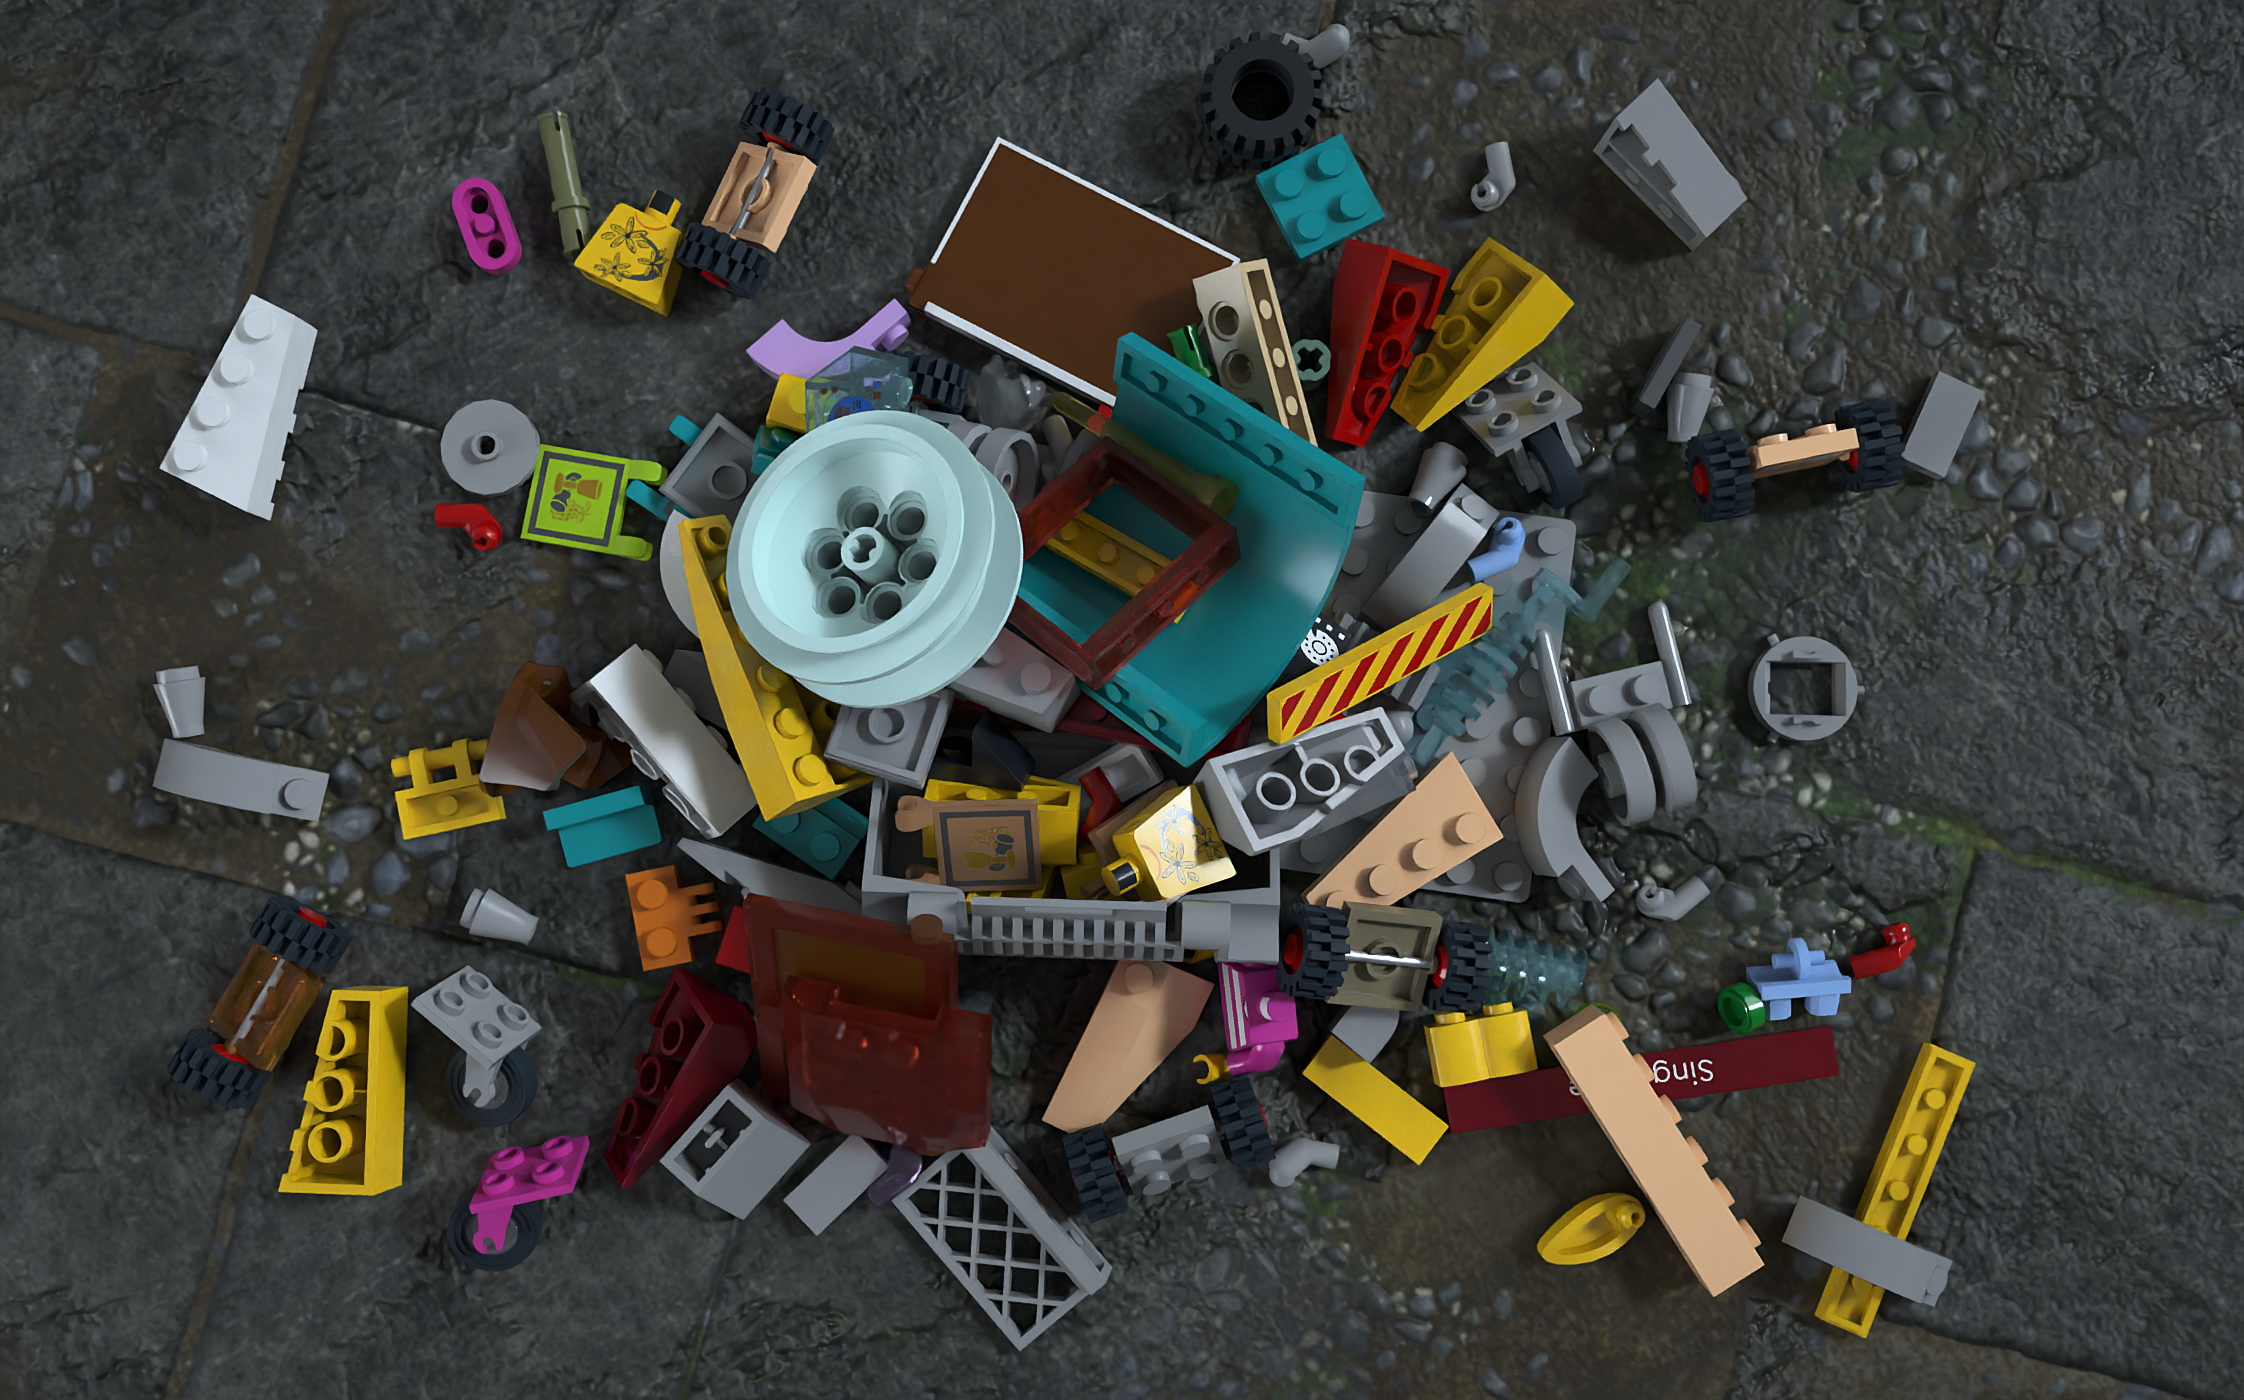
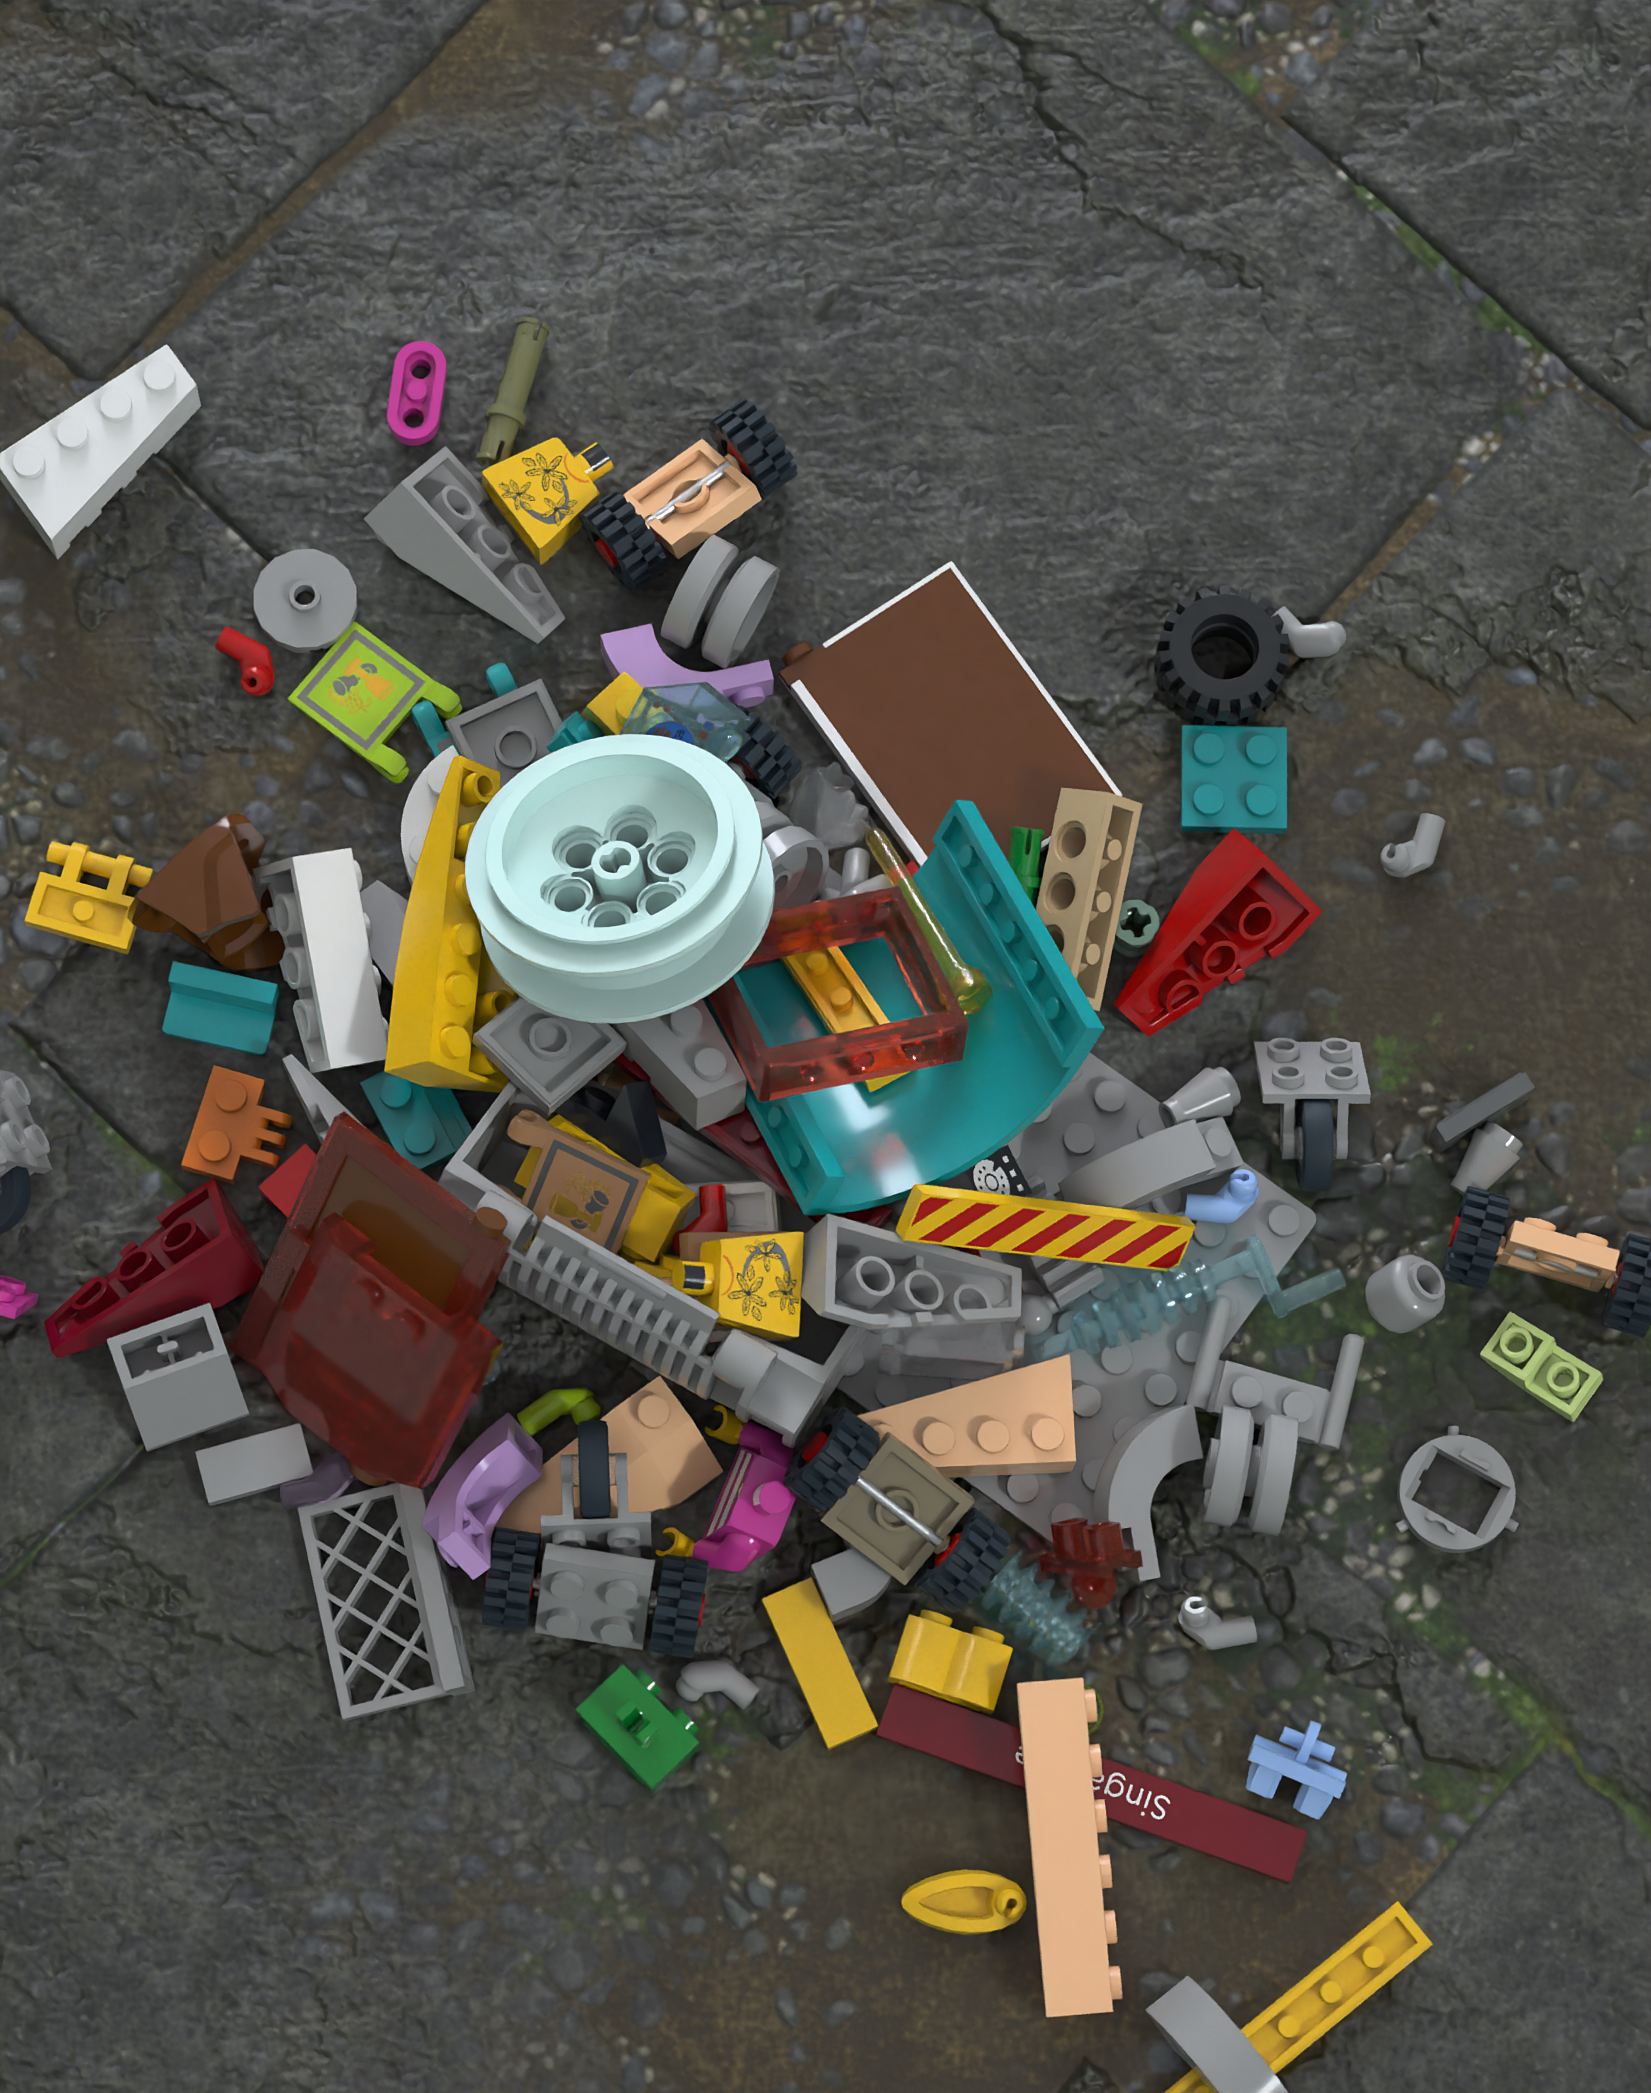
camera: 25 degrees right, 10 degrees down
(496, 917) = (70, 1041): light grey cone -> none
(572, 330) = (446, 532): none -> light grey wedge
(828, 271) = (720, 602): none -> light grey wheel
(1029, 1120) = (479, 1491): none -> lavender arch
(1053, 1003) = (556, 1403): none -> lime arm
(1119, 1060) = (594, 1473): none -> light grey plate
(1261, 1232) = (639, 1727): none -> green brick
(1493, 320) = (1336, 983): yellow wedge -> none
(1551, 906) = (1090, 1556): none -> clear red hips
(1670, 166) = (1588, 924): light grey wedge -> none
(1684, 550) = (1405, 1293): none -> light grey head
(1741, 1008) = (1226, 1764): green tile -> none
(1816, 550) = (1541, 1367): none -> yellowish green slope
(1889, 956) = (1396, 1793): red arm -> none

